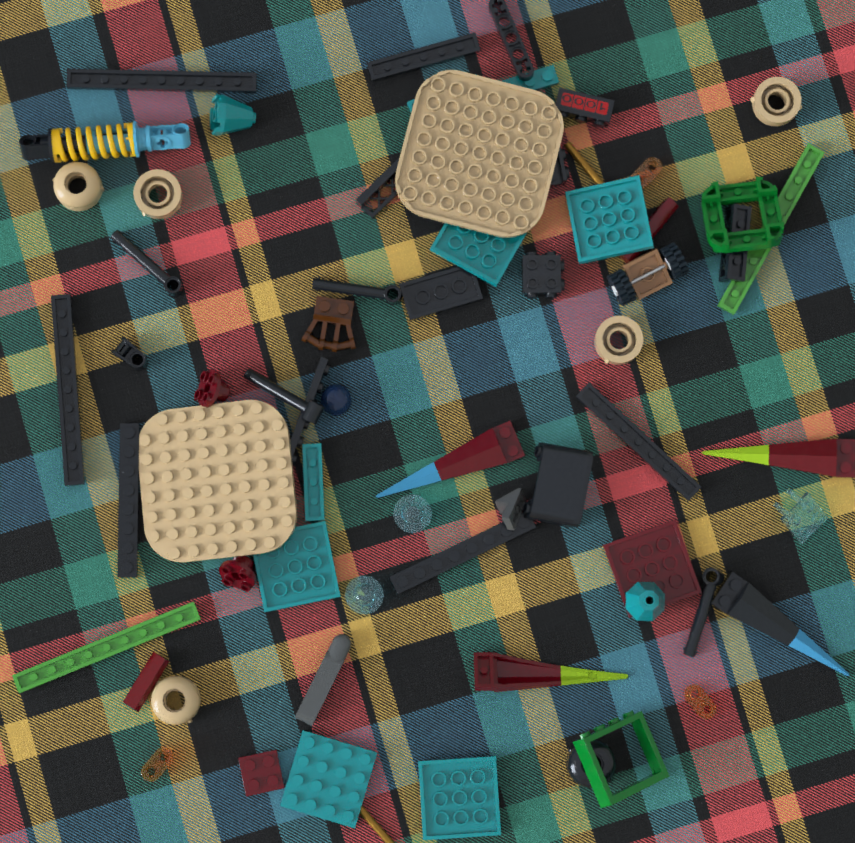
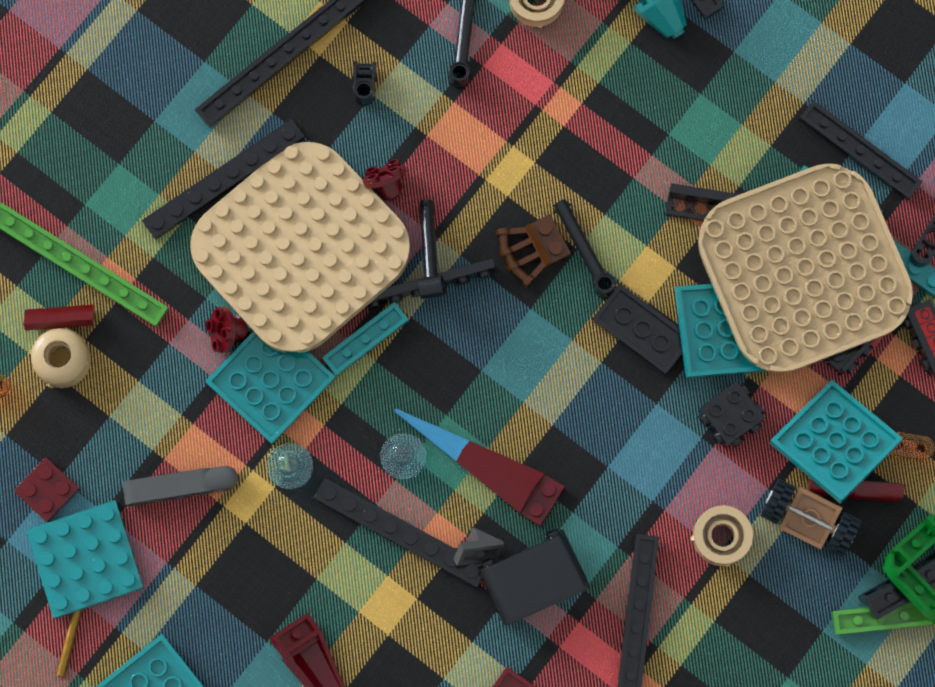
camera: 65 degrees right, 5 degrees down
(336, 399) = (462, 304): dark blue piece -> none
(583, 163) = (874, 378): pearl gold bar -> none

